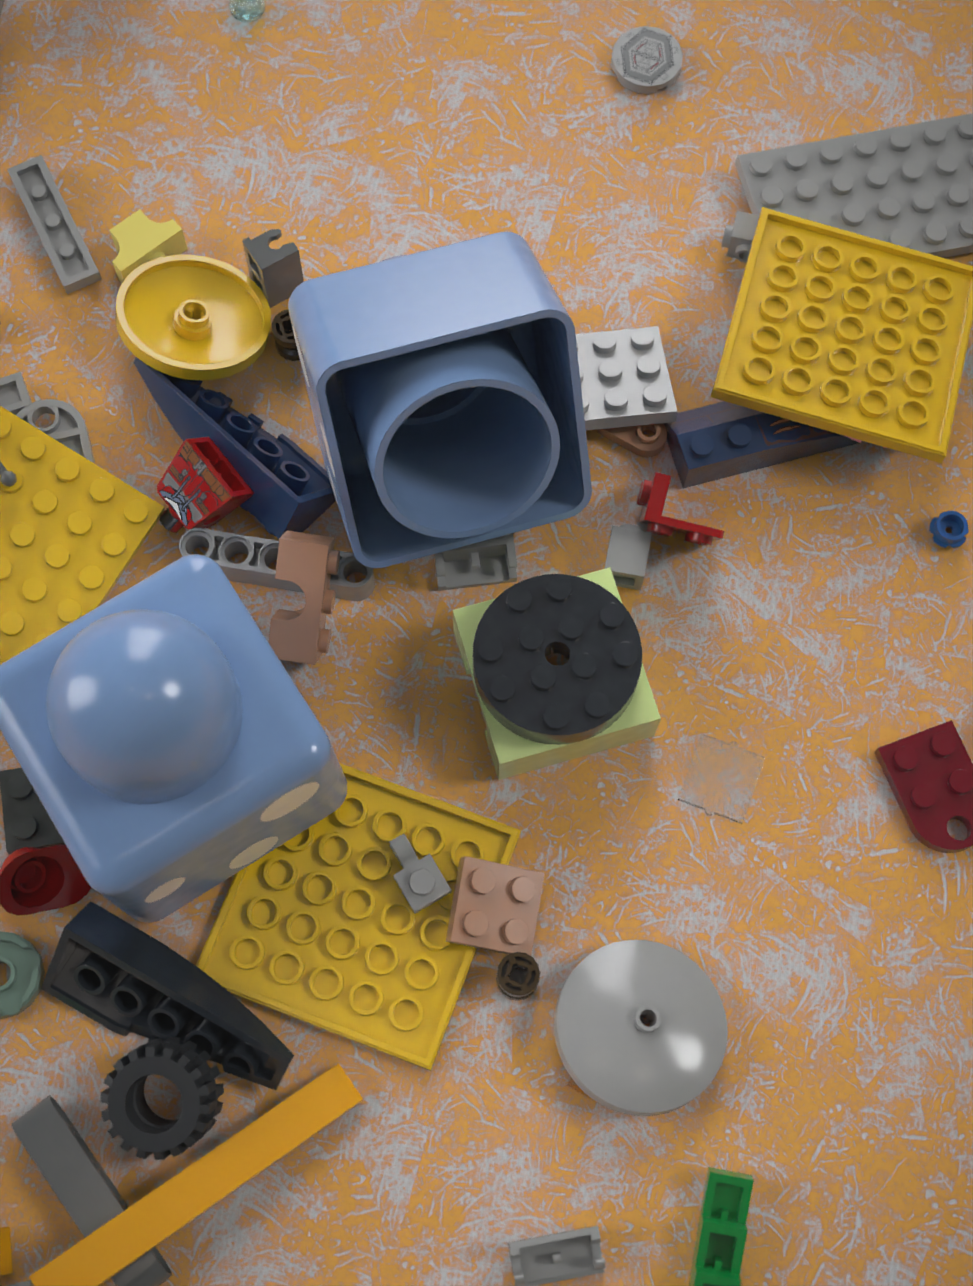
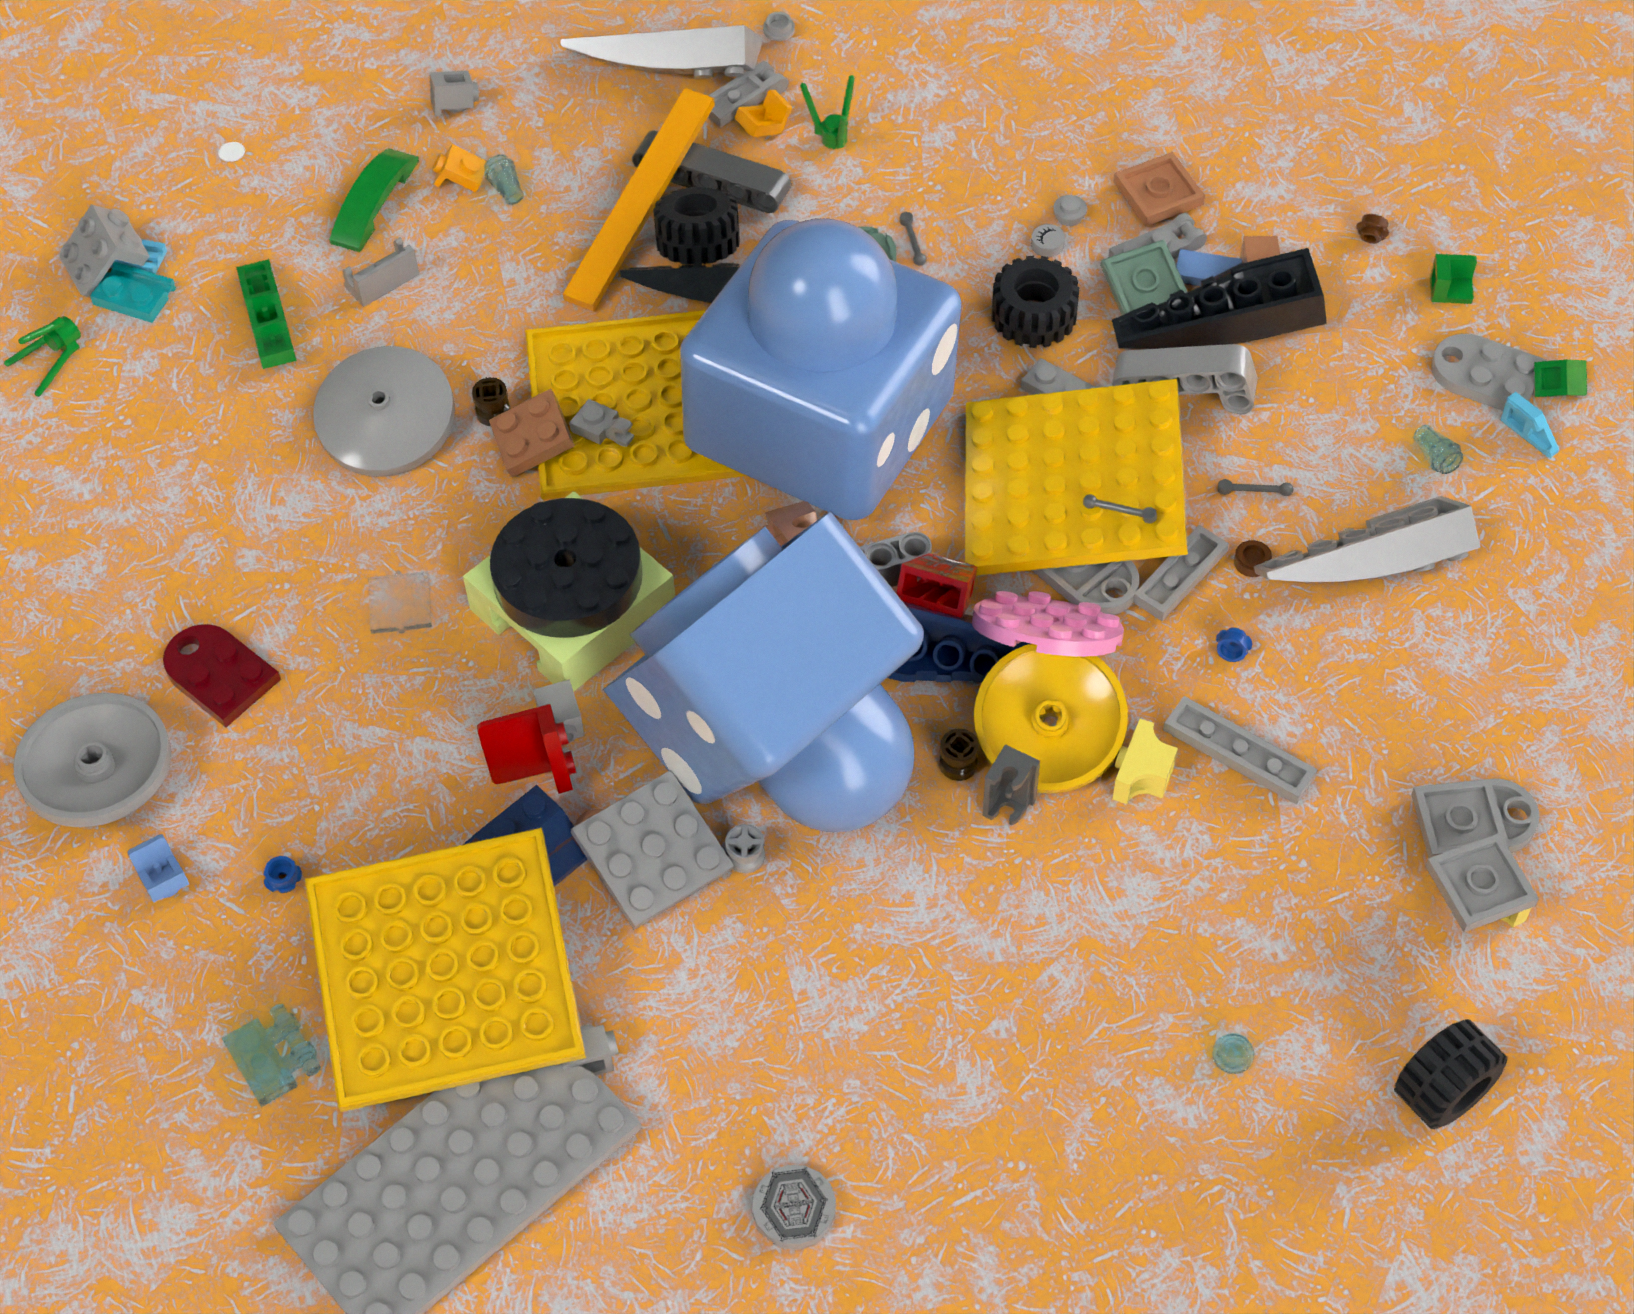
camera: 155 degrees right, 15 degrees down
(175, 375) = (1049, 623): none -> bright pink plate

